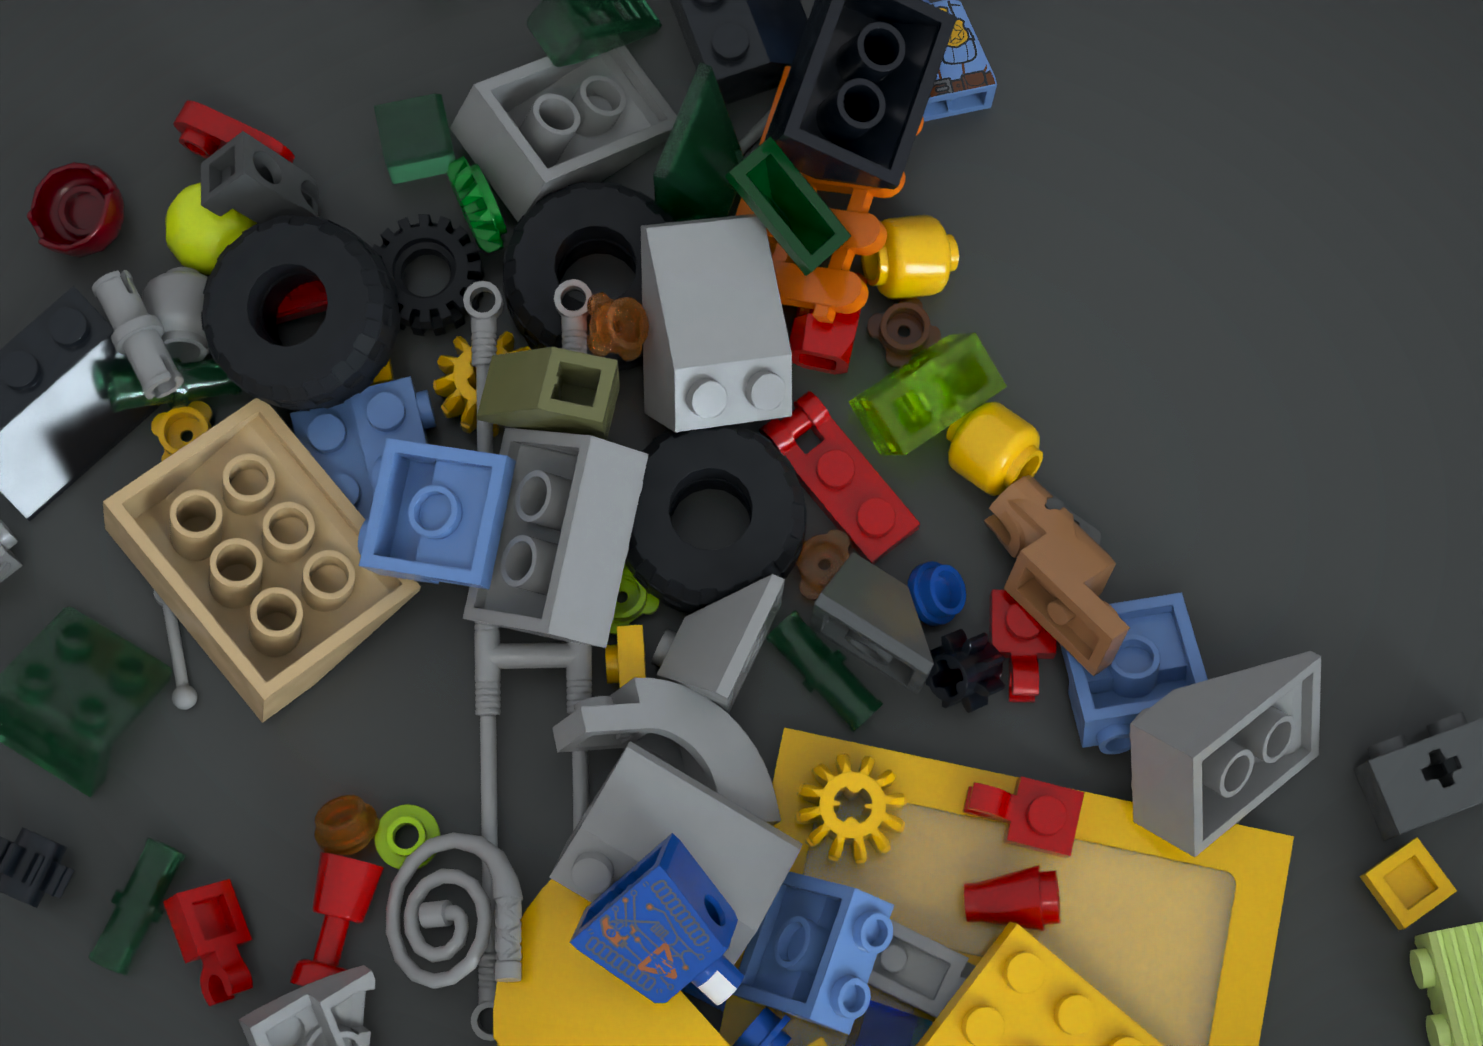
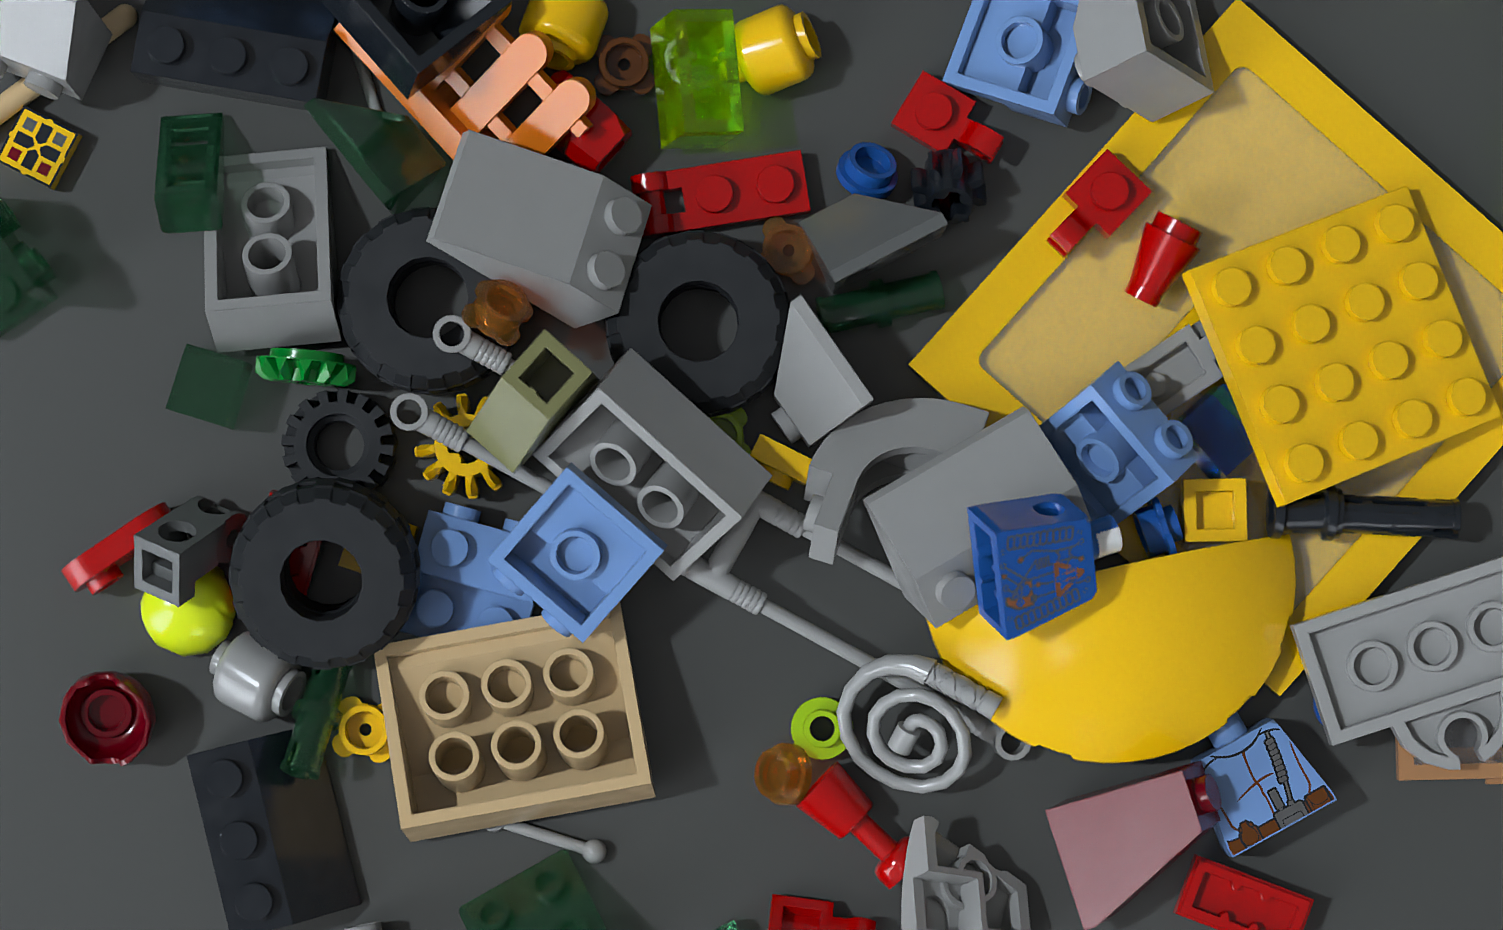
camera: 60 degrees left, 10 degrees up
(137, 334) = (264, 722): light grey pin -> none
(788, 206) = (476, 104): dark green slope -> none
(850, 830) = (996, 335): yellow gear -> none
(1058, 571) = (911, 59): medium nougat plate -> none

